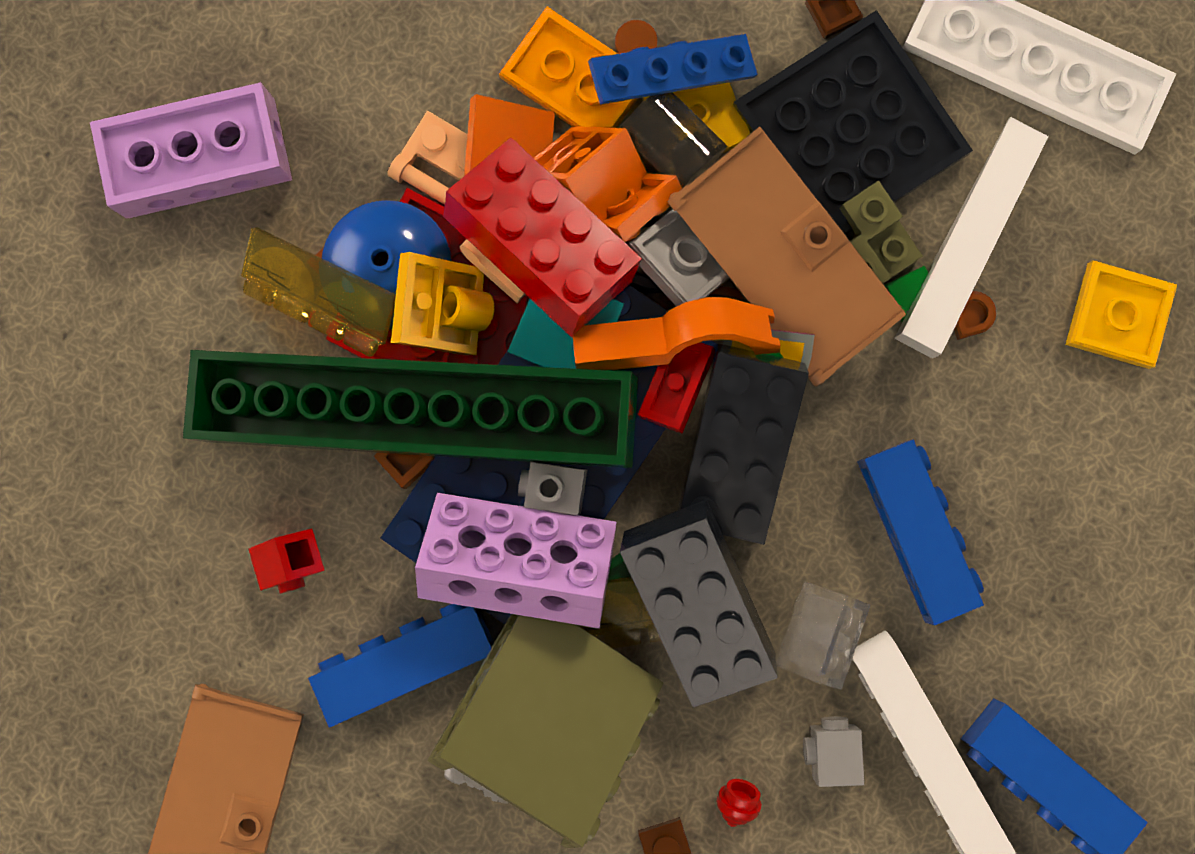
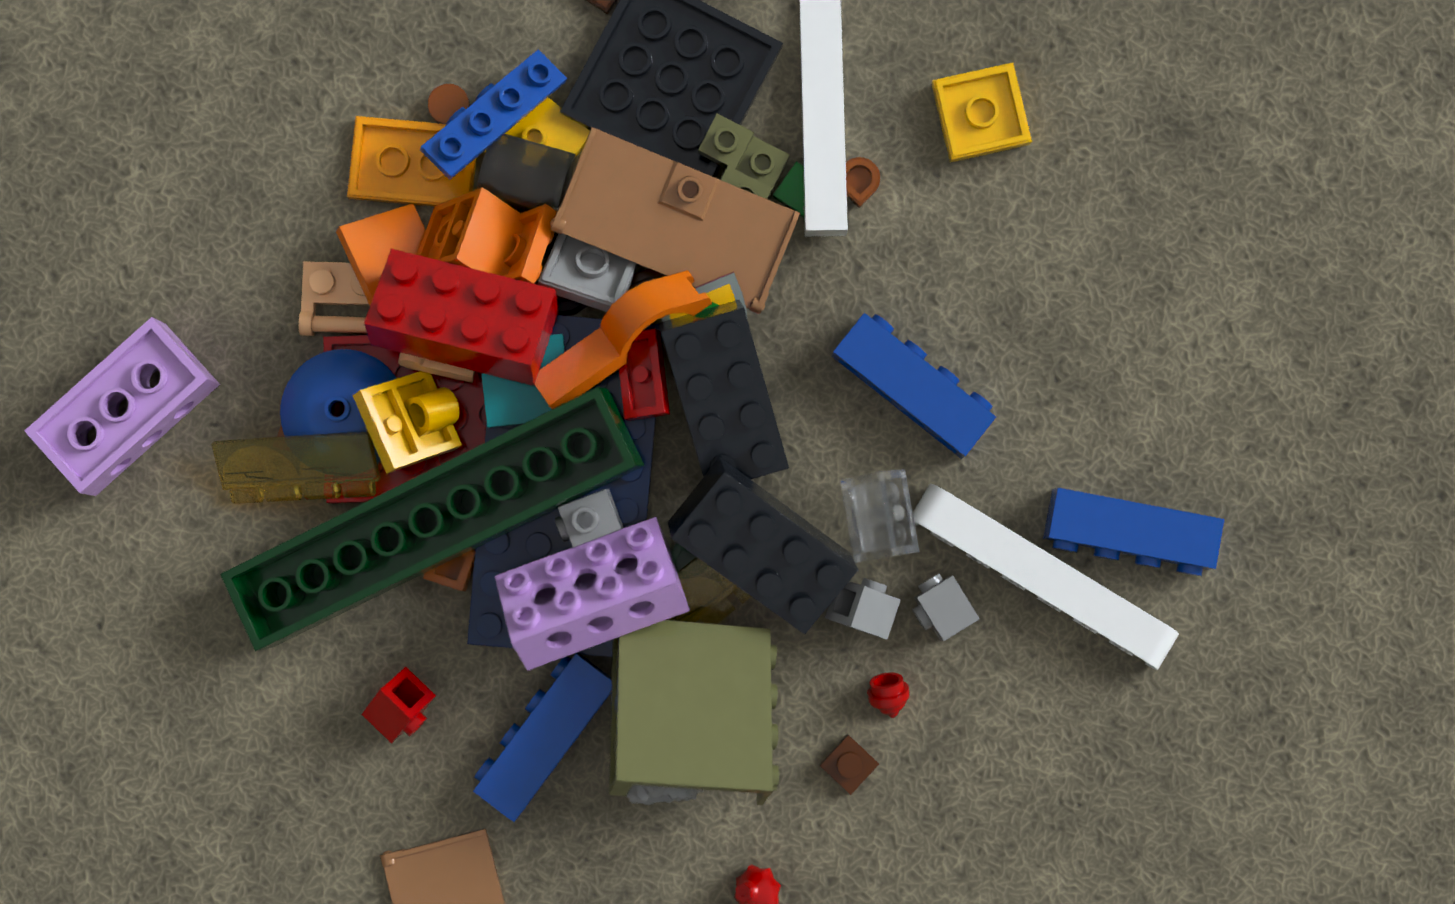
camera: 35 degrees left, 0 degrees up
(762, 714) = (865, 608): none -> light grey brick

